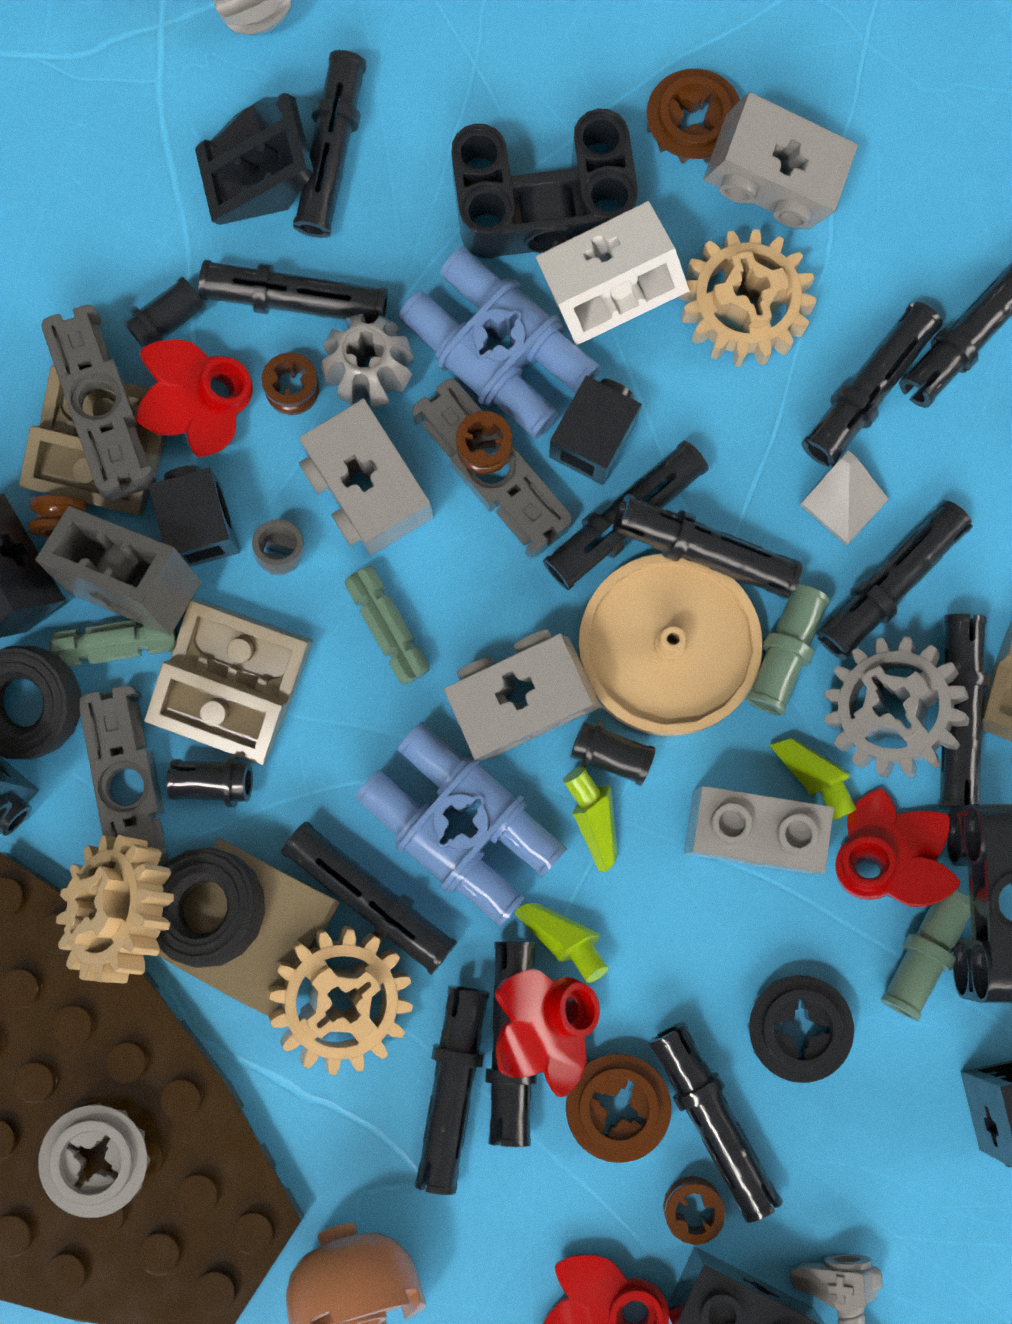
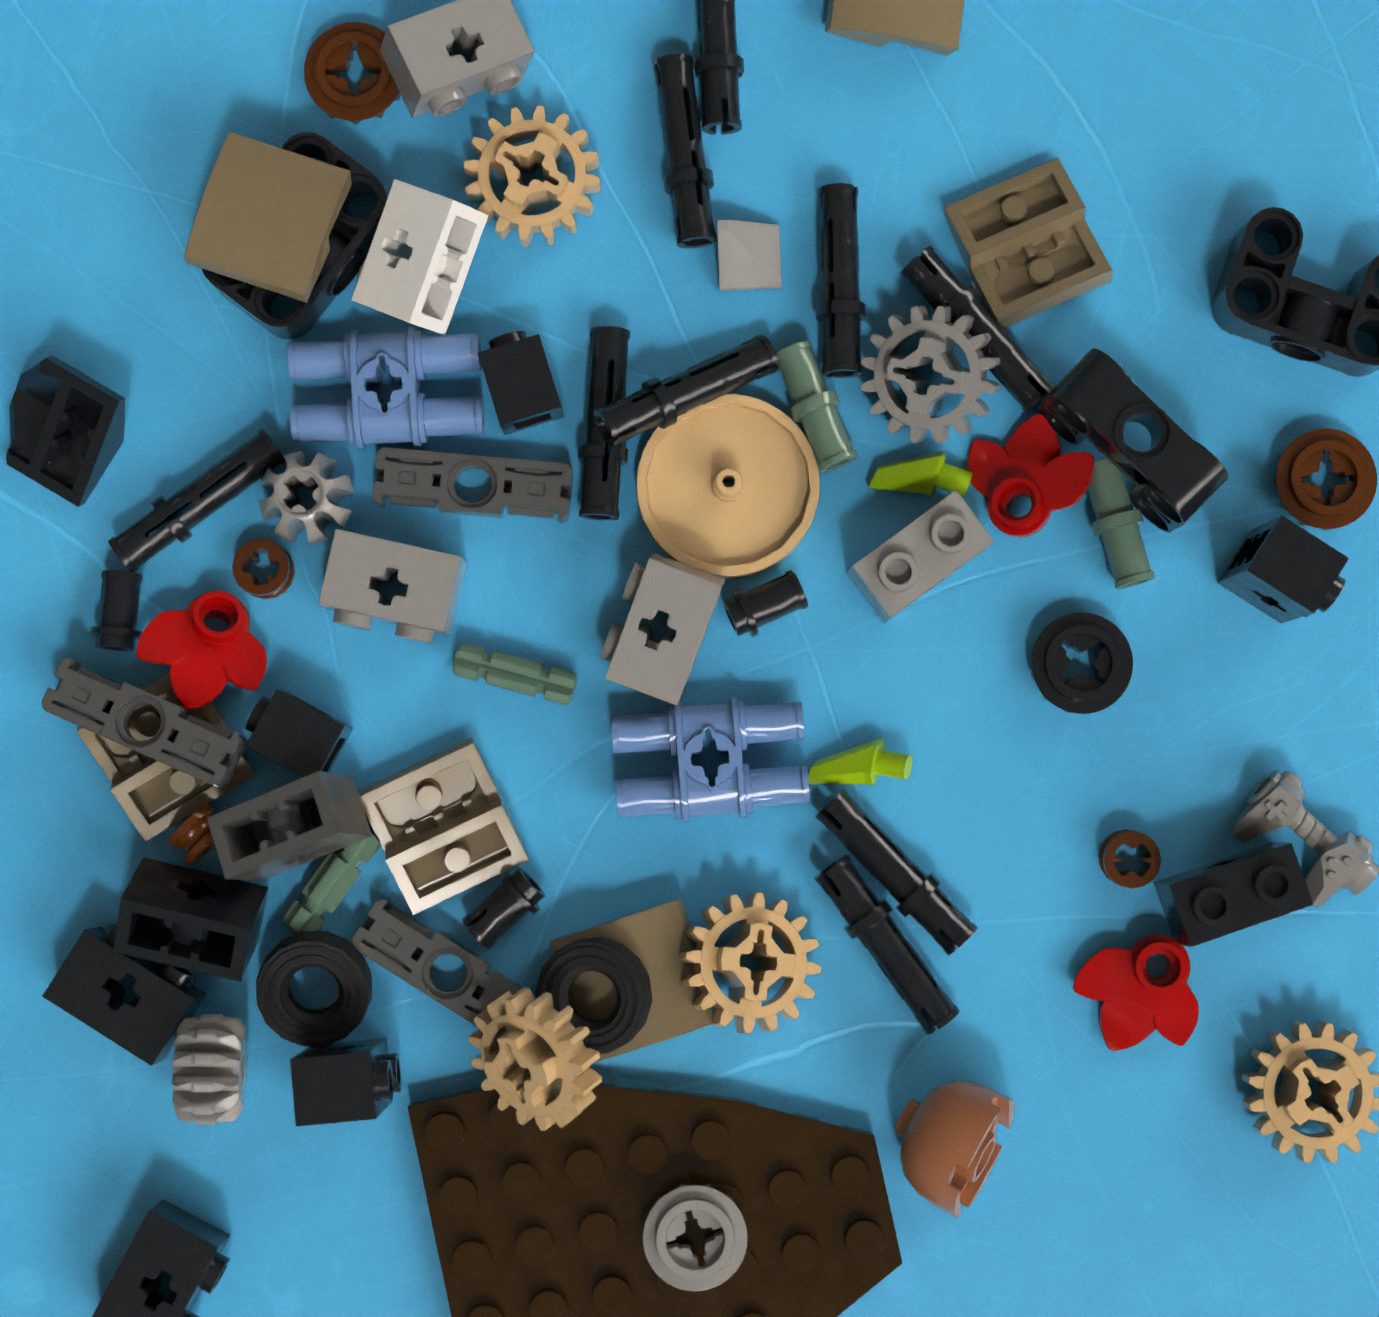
camera: 50 degrees left, 5 degrees up
(282, 538) = (376, 686): dark grey hinge -> none
(342, 83) = (65, 302): black pin -> none
(368, 897) = (628, 882): black pin -> none
(489, 424) = (442, 457): reddish brown bush -> none
(534, 142) = (267, 216): none -> dark tan slope
(545, 1028) = (909, 838): red plate -> none
(594, 816) = (796, 660): lime bar -> none
(627, 1138) = (1037, 857): reddish brown gear -> none
(701, 1096) = (1097, 788): black pin -> none

